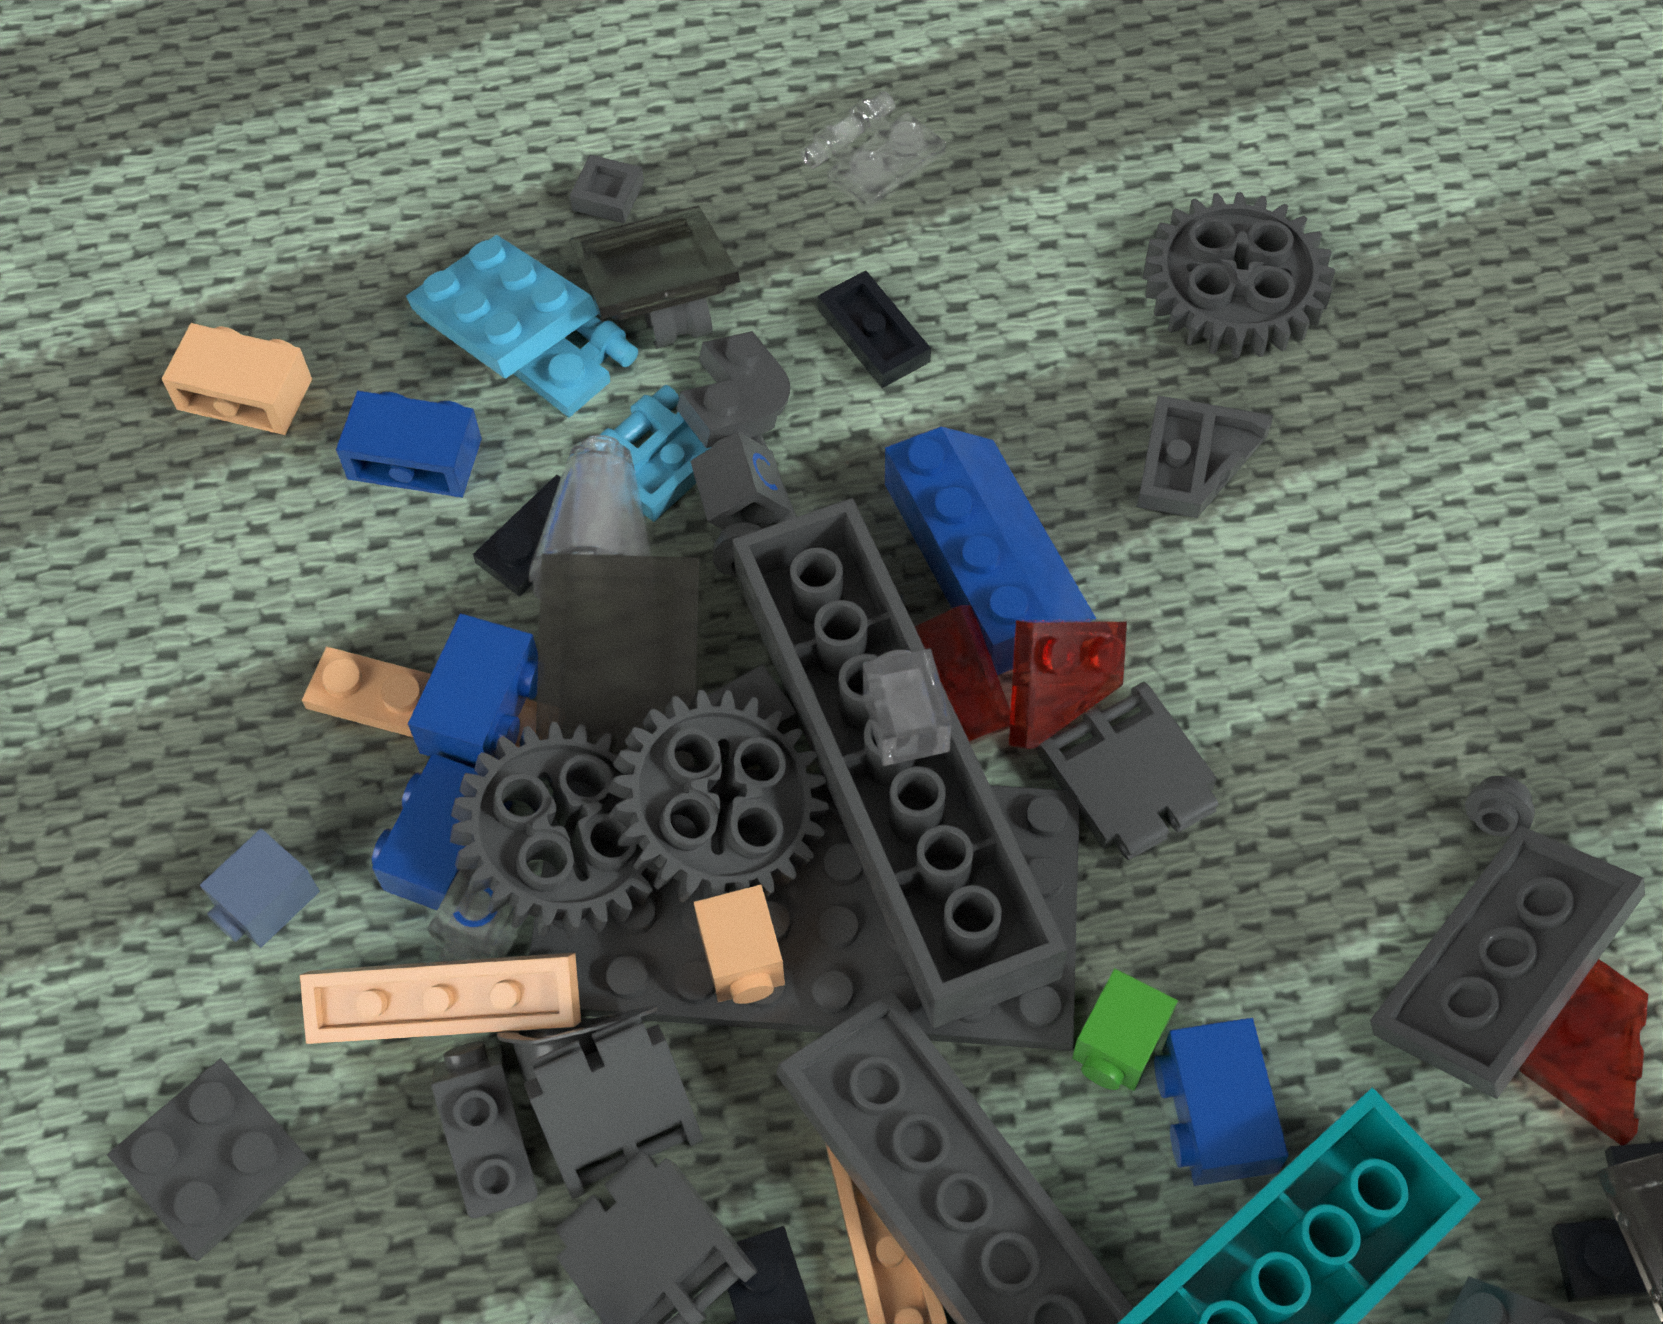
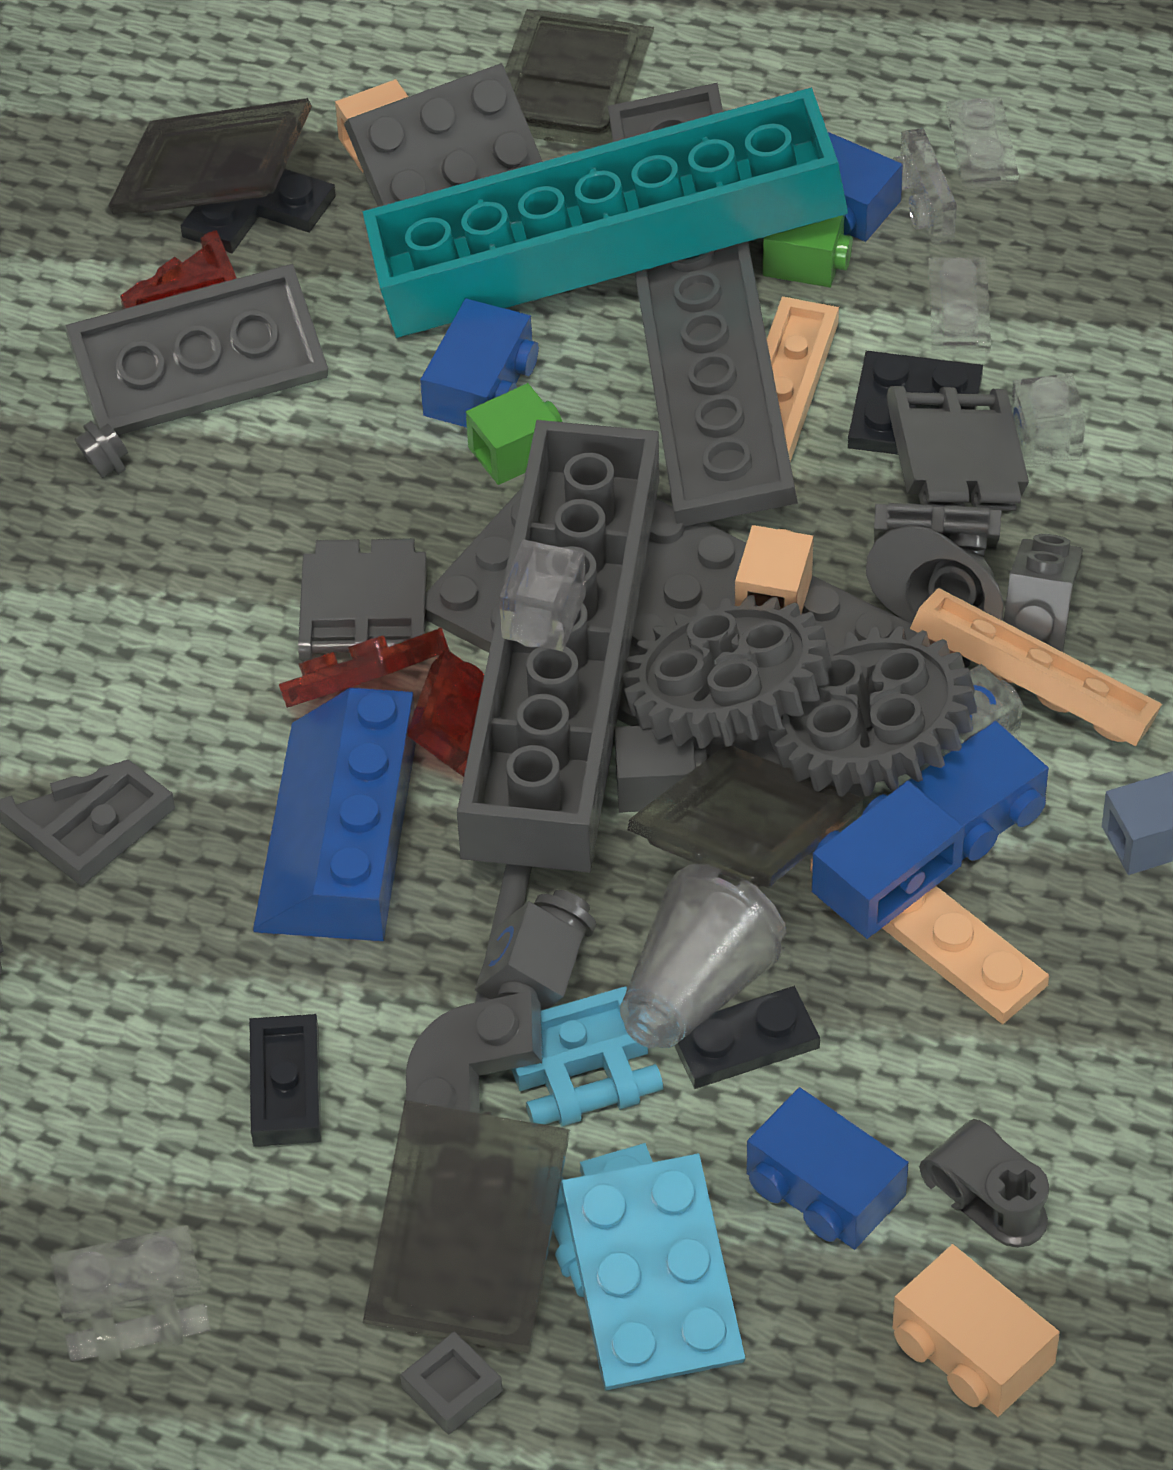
camera: 150 degrees left, 10 degrees down
(274, 492) = (990, 1184): none -> dark grey piece

